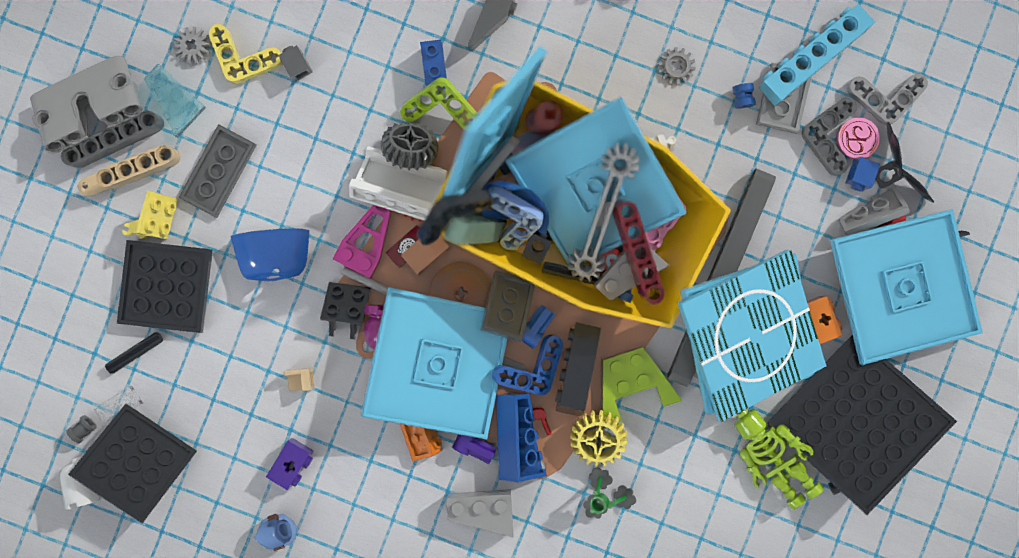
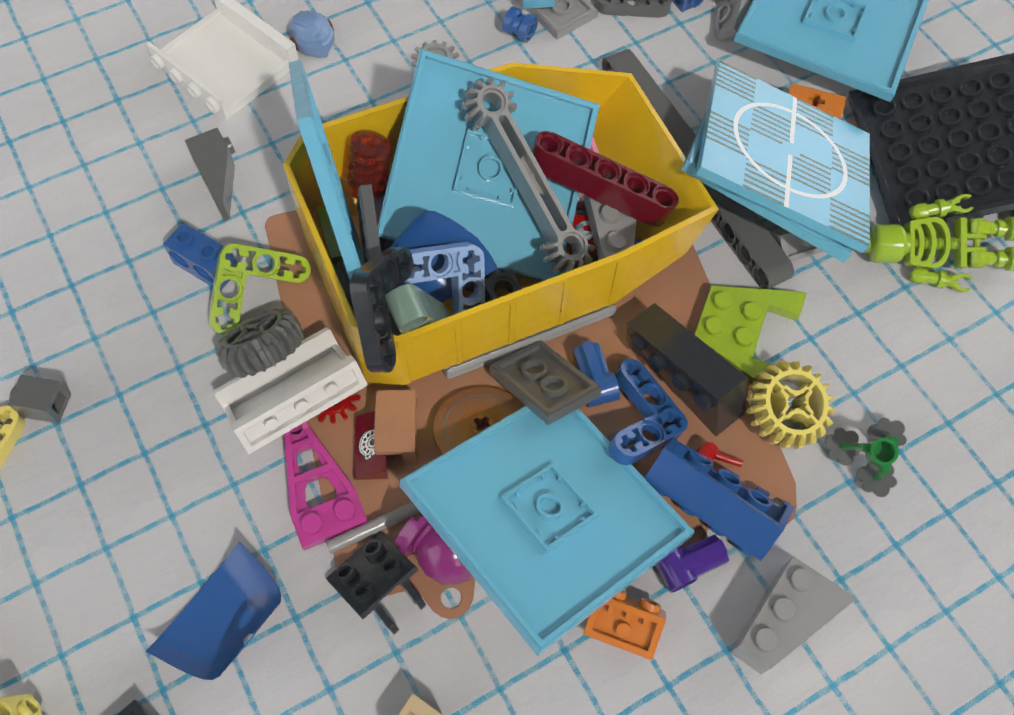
camera: 50 degrees left, 25 degrees down
(217, 171) = (54, 607): dark grey tile -> none

